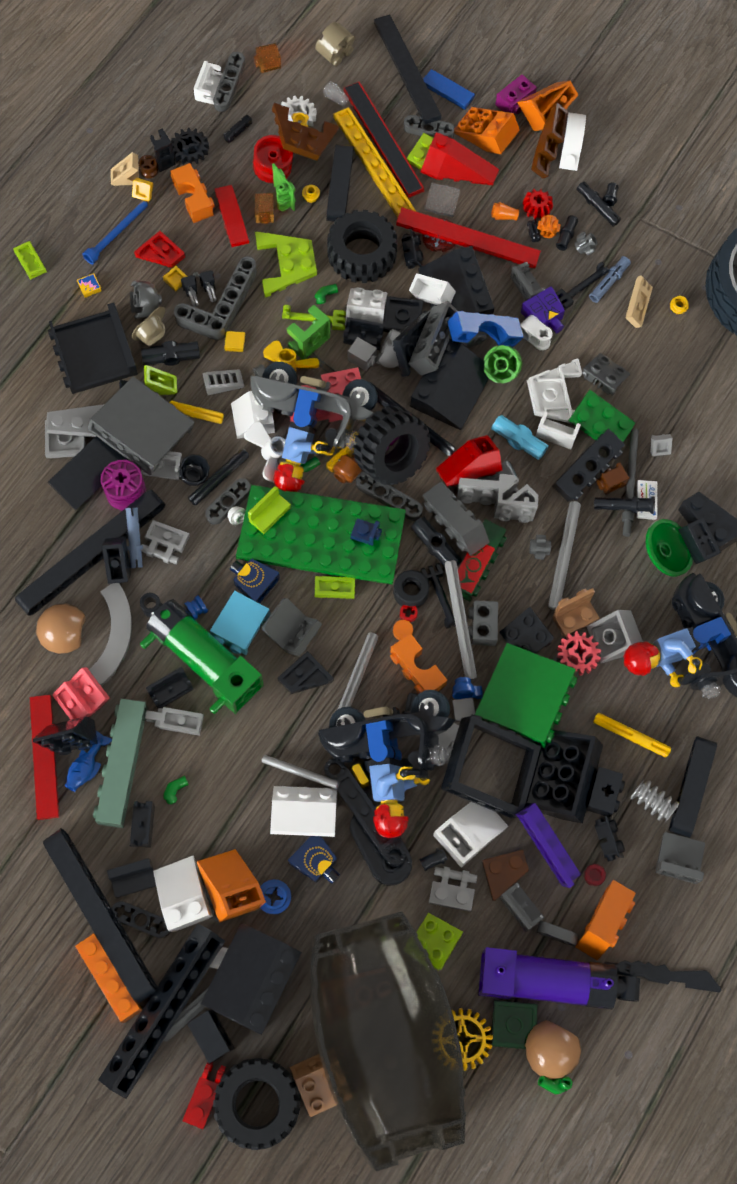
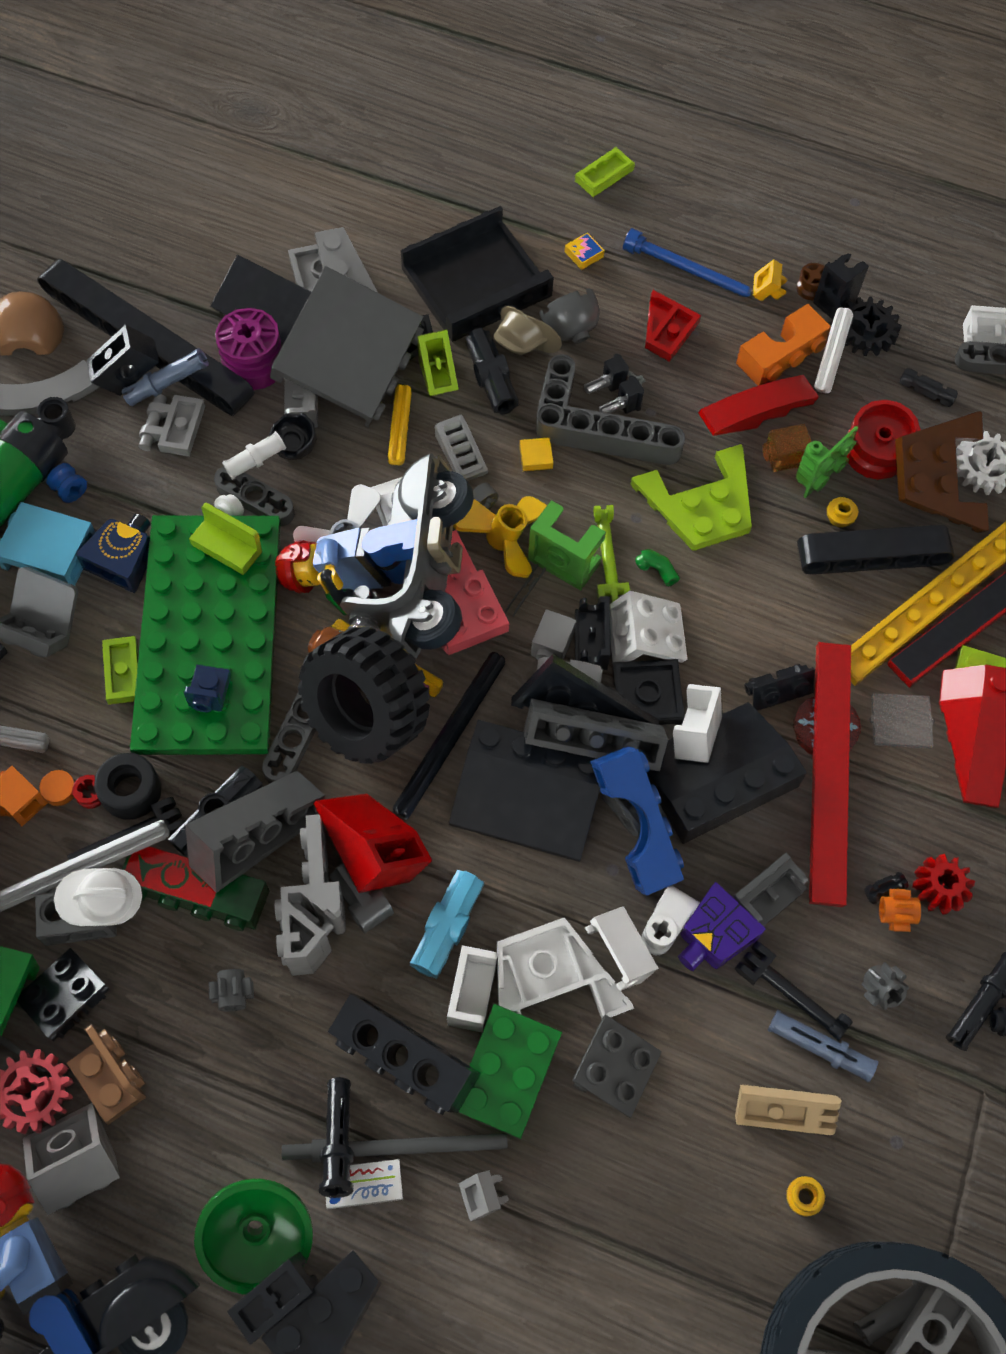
camera: 80 degrees right, 5 degrees down
(125, 171) = (792, 255): tan slope -> none
(174, 277) = (631, 353): yellow tile -> none
(204, 167) = (833, 350): none -> white axle
(206, 492) = (254, 455): none -> white pin
(220, 475) = (304, 481): black axle -> none
(300, 117) = (972, 456): yellow plate -> none
(362, 226) = (768, 565): black tyre -> none
(480, 605) = (98, 897): none -> white piece
(502, 364) = (580, 866): bright green cylinder -> none
(504, 212) = (907, 827): orange cone -> none
(548, 353) = (625, 946): none -> white hinge
(564, 554) = (226, 1040): light grey axle -> none
(567, 233) = (900, 949): black pin -> none
(613, 479) = (390, 1107): reddish brown brick -> none

